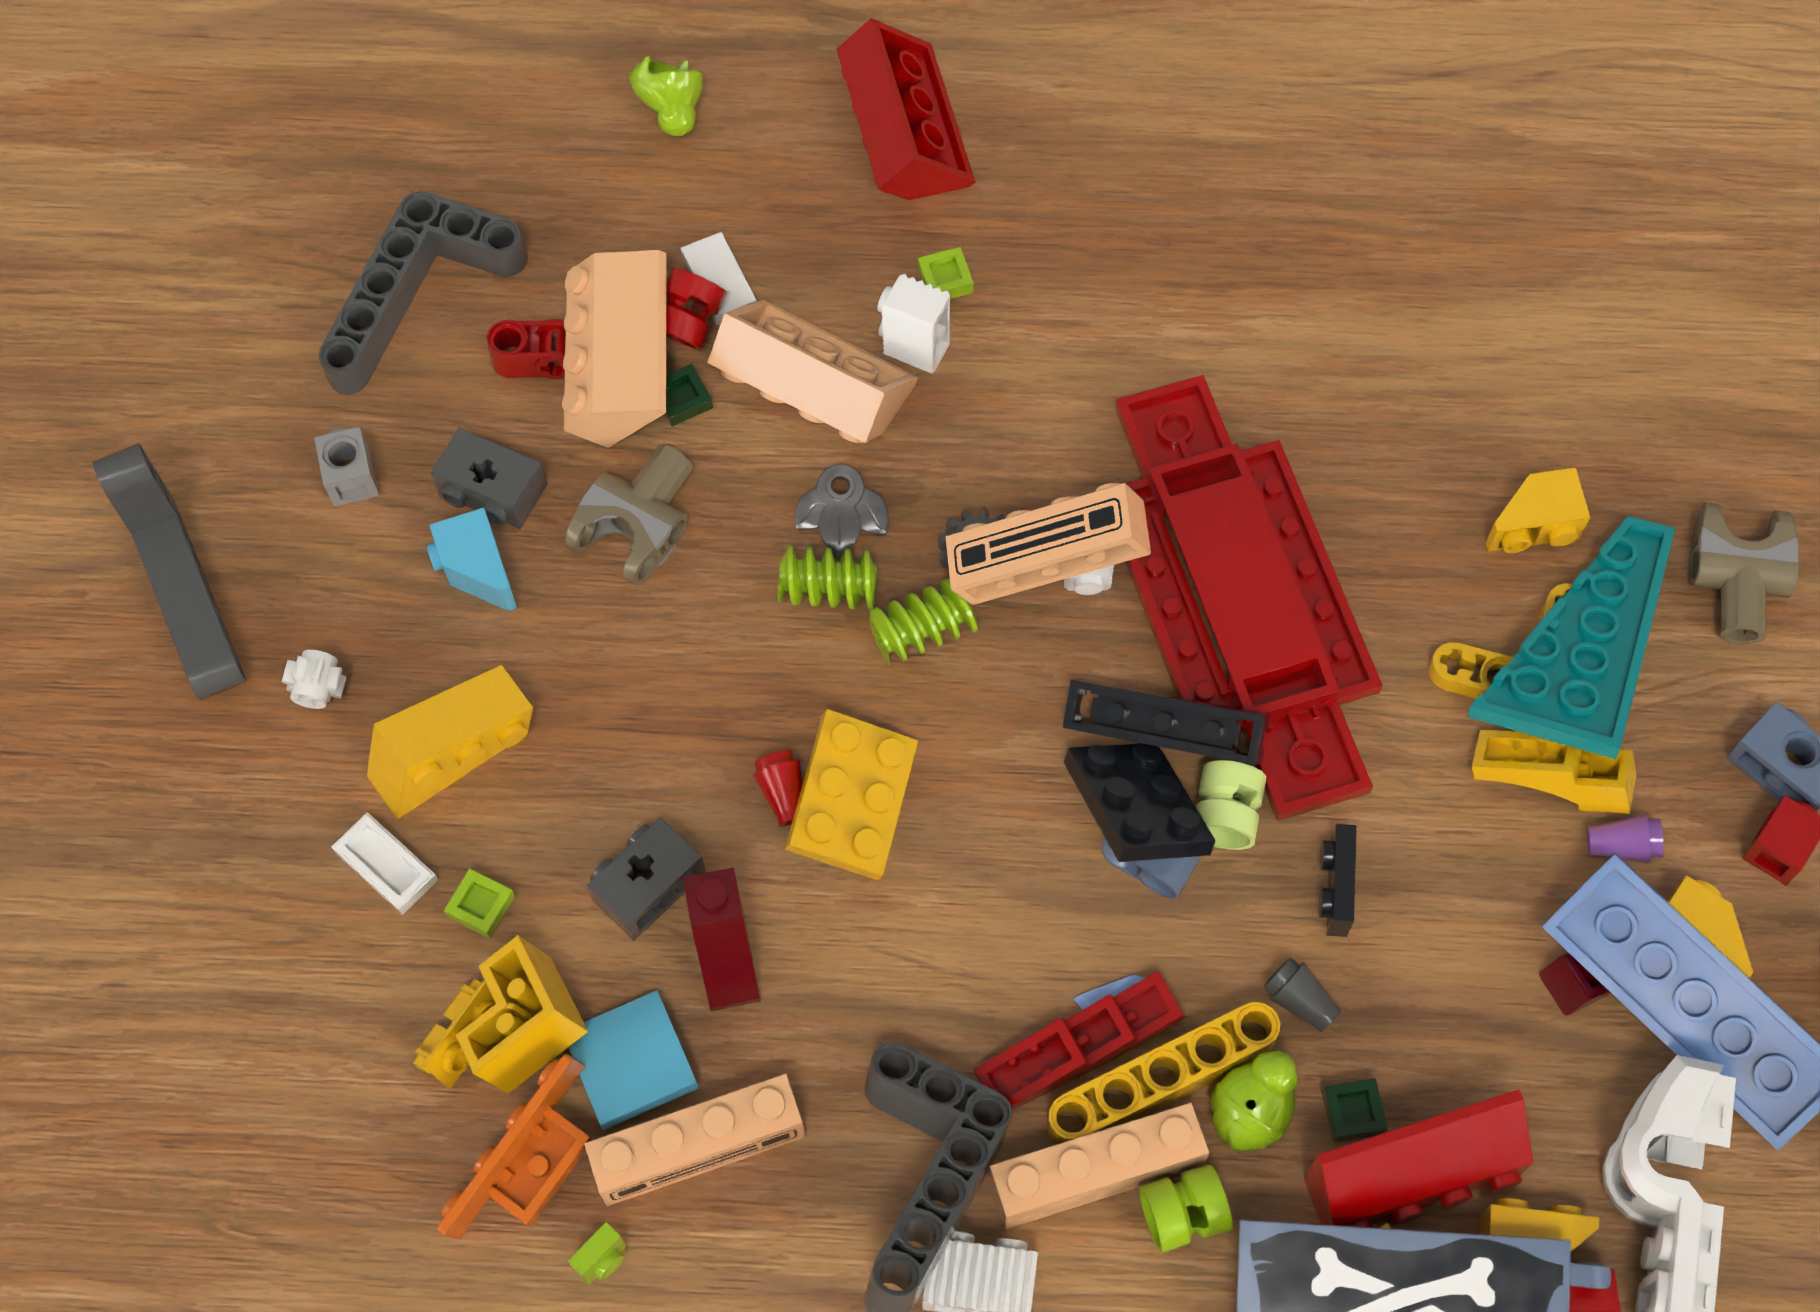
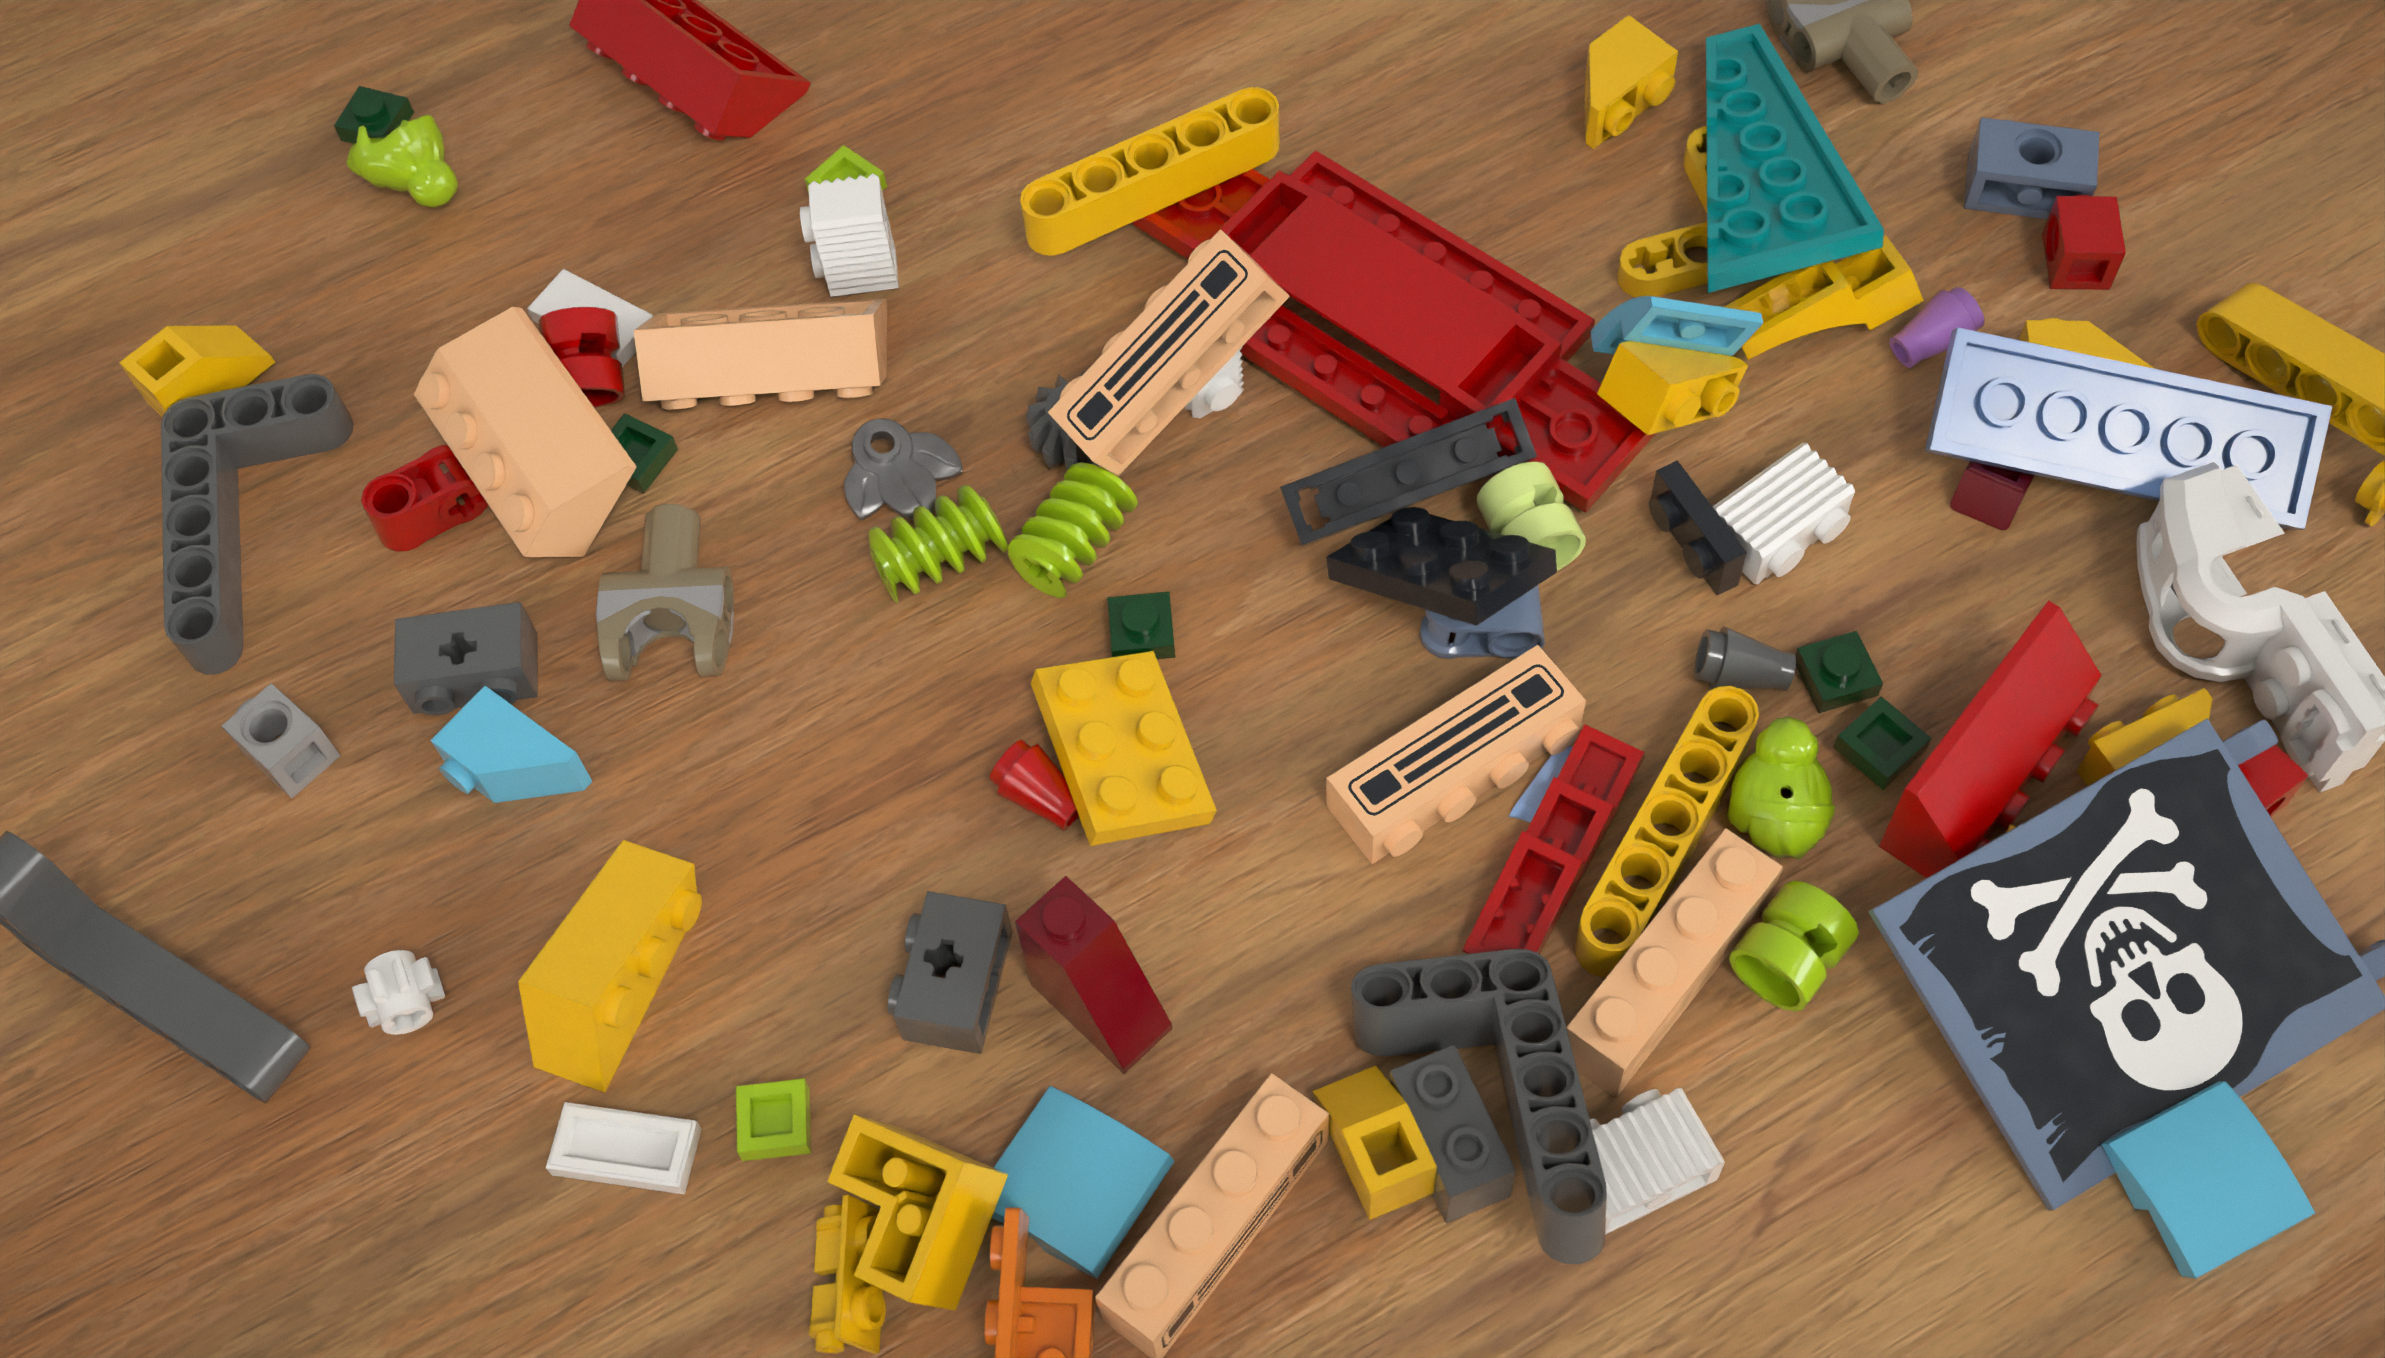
camera: 30 degrees left, 5 degrees down
(449, 169) = (194, 362): none -> yellow slope
(672, 43) = (376, 111): none -> dark green plate
(826, 1156) = (1377, 1141): none -> yellow slope
(875, 1183) = (1458, 1133): none -> dark grey brick
(924, 717) = (1141, 625): none -> dark green plate
(1062, 937) = (1455, 755): none -> light nougat brick
(1167, 381) = (1150, 171): none -> yellow beam
(1365, 1041) = (1838, 671): none -> dark green plate
(1395, 766) = (1670, 385): none -> yellow slope
(1408, 907) = (1786, 512): none -> white brick
(1422, 730) = (1675, 325): none -> medium azure slope

